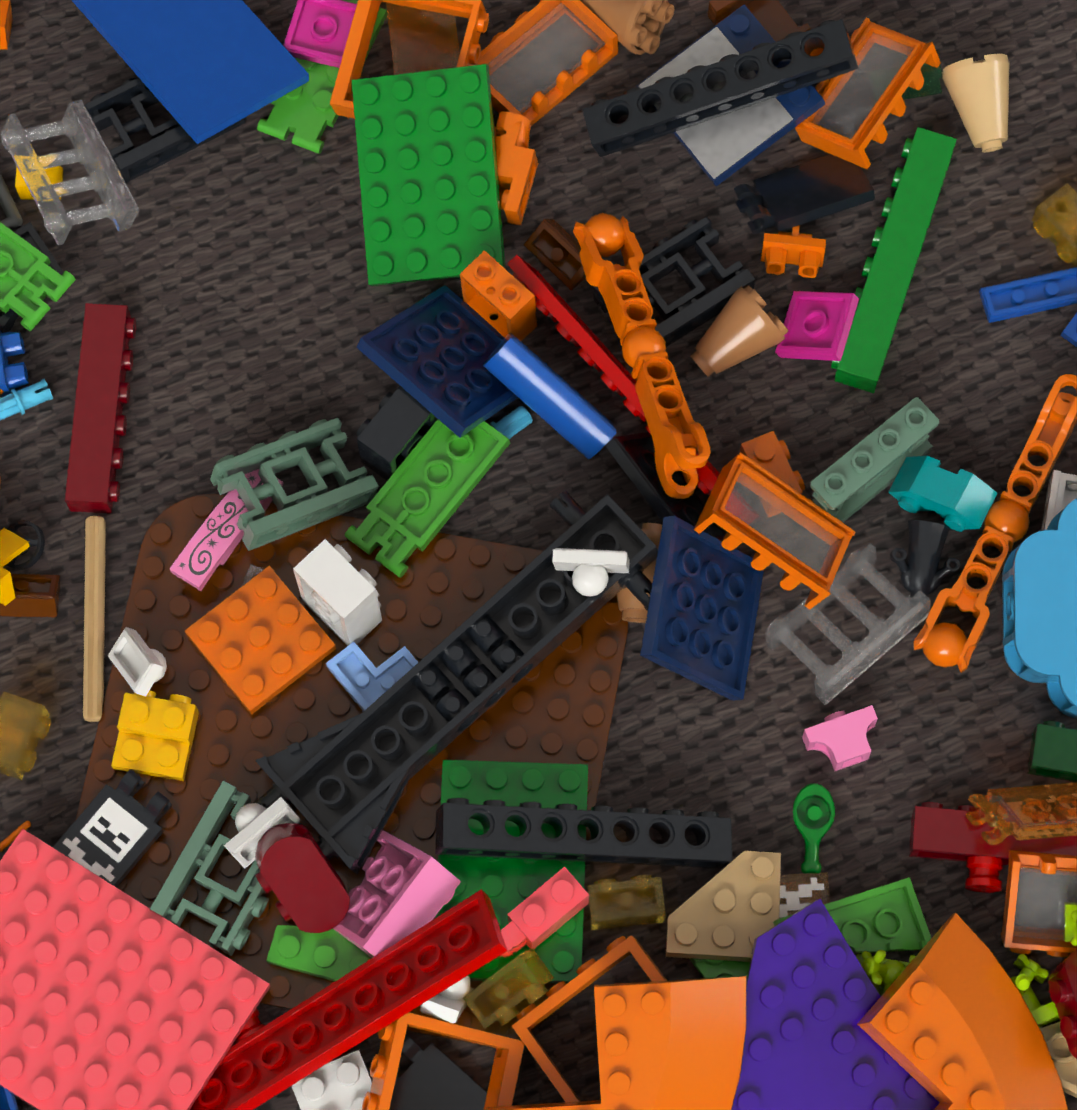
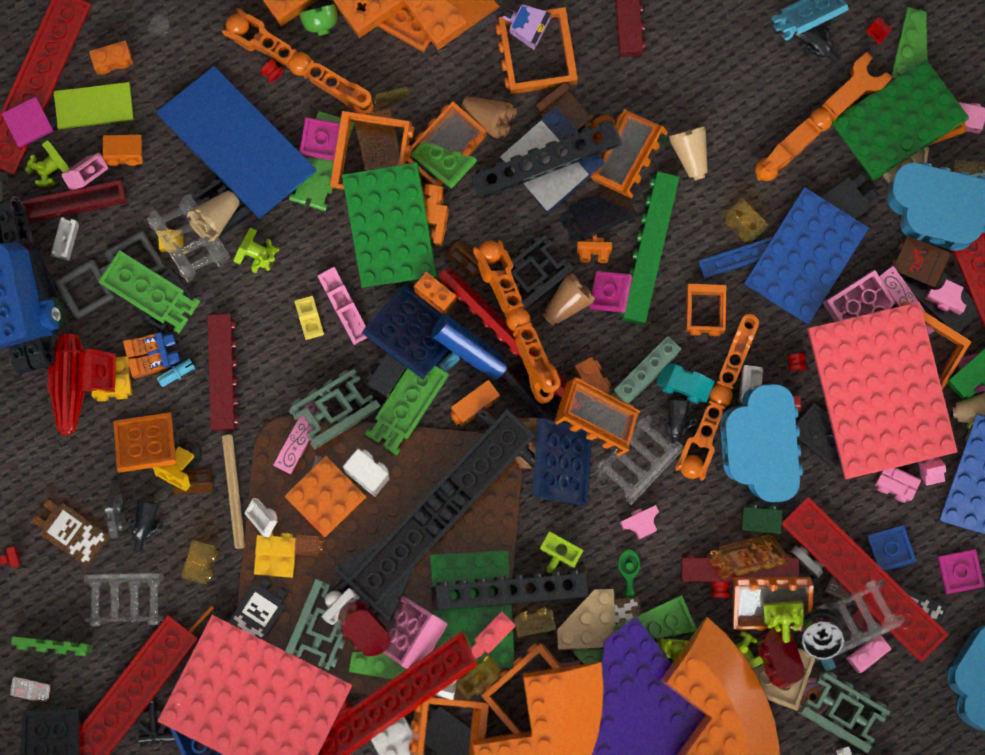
camera: 15 degrees left, 10 degrees up
(116, 131) = (213, 215): none -> tan cone
(173, 195) = (256, 251): none -> lime piece
(217, 722) = (308, 546): none -> clear orange brick
(268, 329) = (309, 317): none -> light yellow slope
(331, 311) = (343, 304): none -> bright pink slope
(363, 679) = (388, 517): light blue plate -> none
(530, 500) = (469, 406): none -> orange window
(534, 82) = (443, 164): none -> bright green wing
(590, 567) = (501, 456): white tile -> none
(688, 768) = (561, 551): none -> lime piece
(993, 338) = (706, 289): none -> orange window

